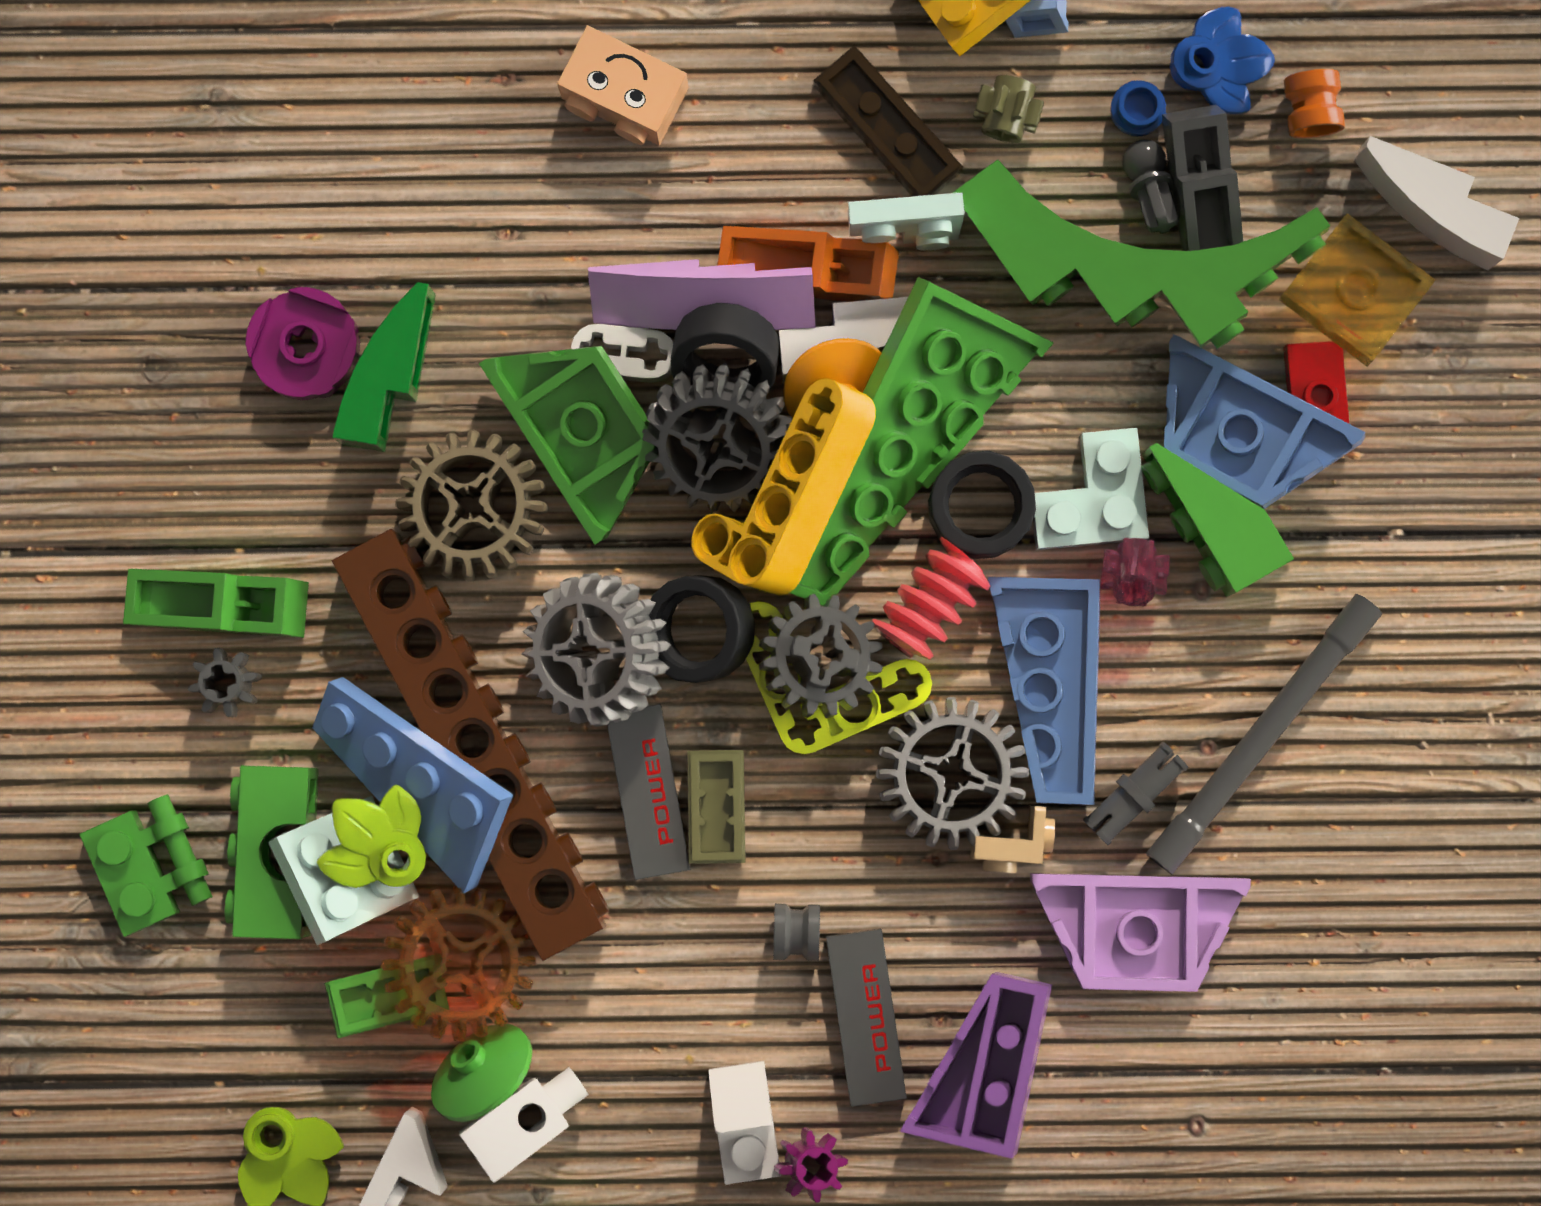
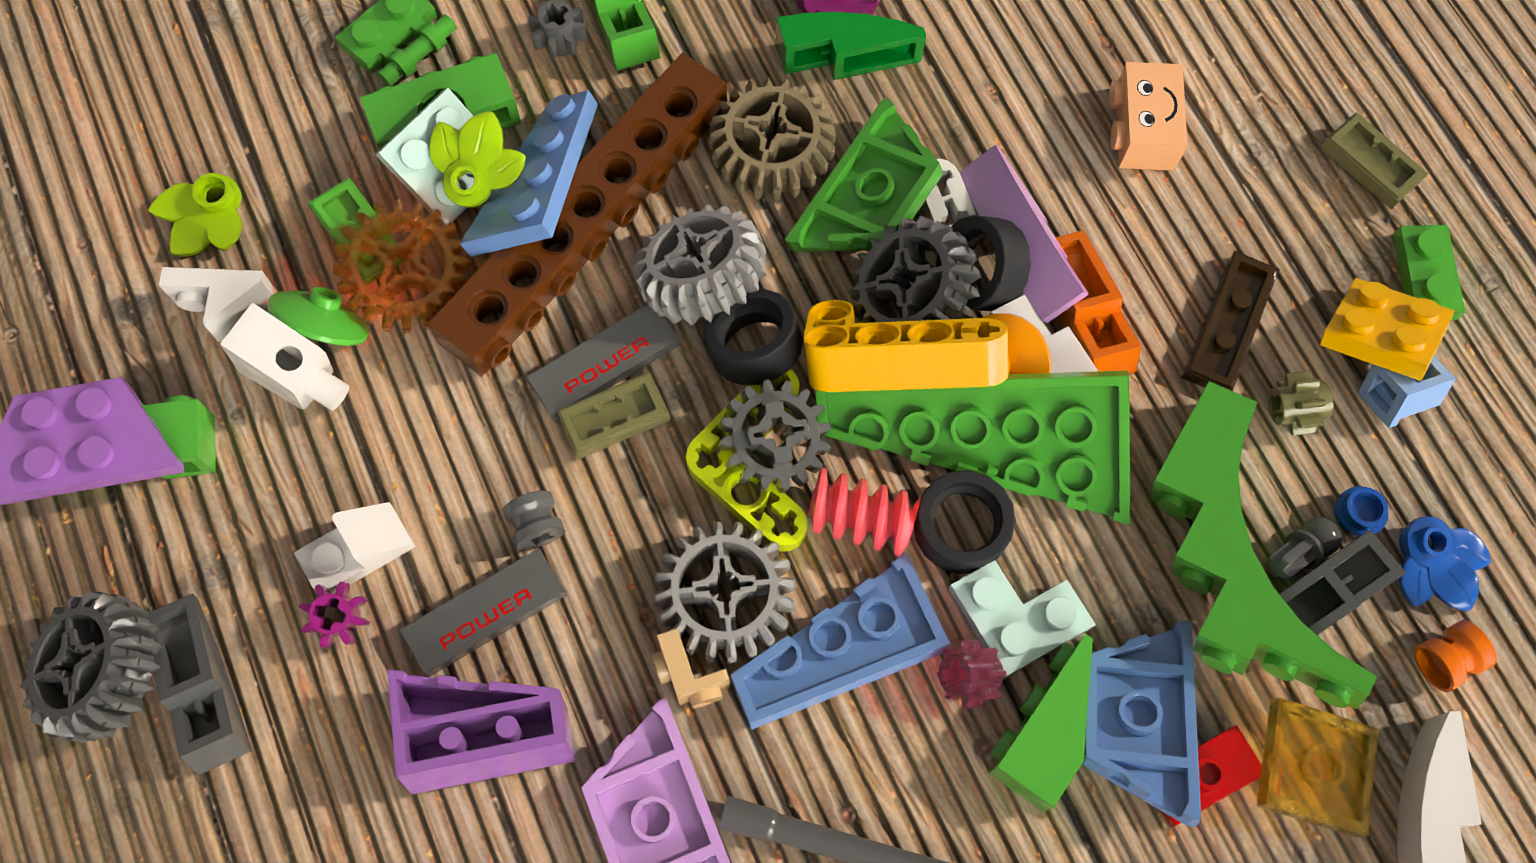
camera: 60 degrees right, 15 degrees down
(922, 219) = (1180, 363): light aqua plate -> none
(1135, 793) = (777, 761): dark grey pin -> none

